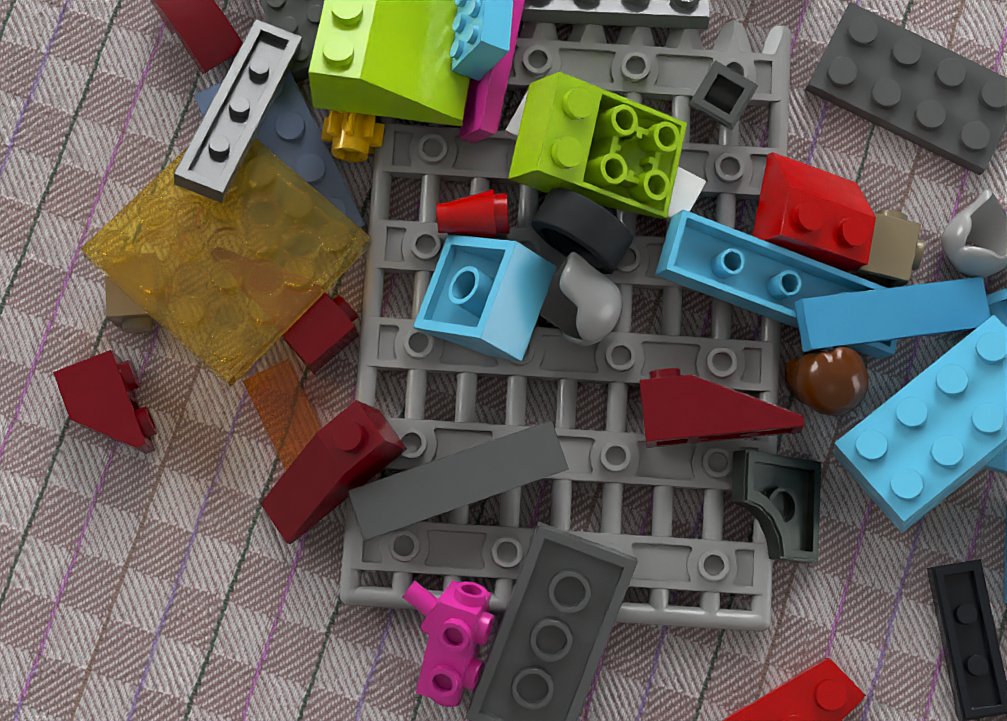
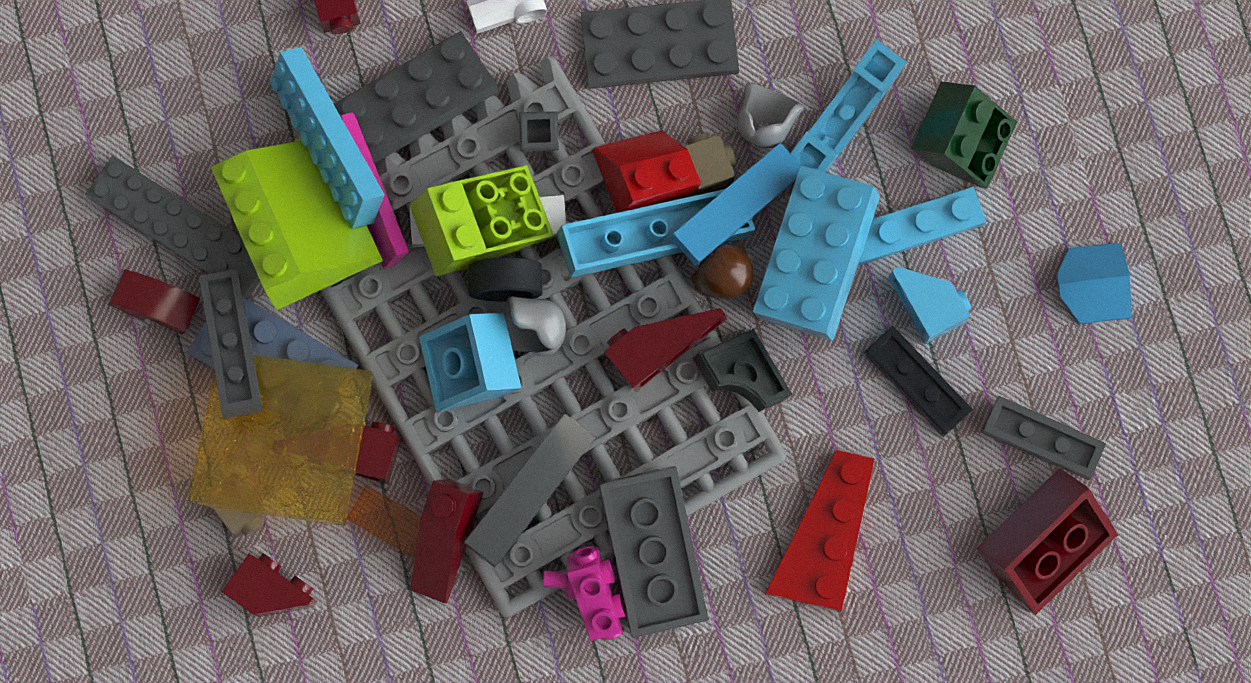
camera: 30 degrees left, 0 degrees up
(352, 135) = (312, 312): yellow gear -> none
(475, 215) = (429, 312): red cone -> none

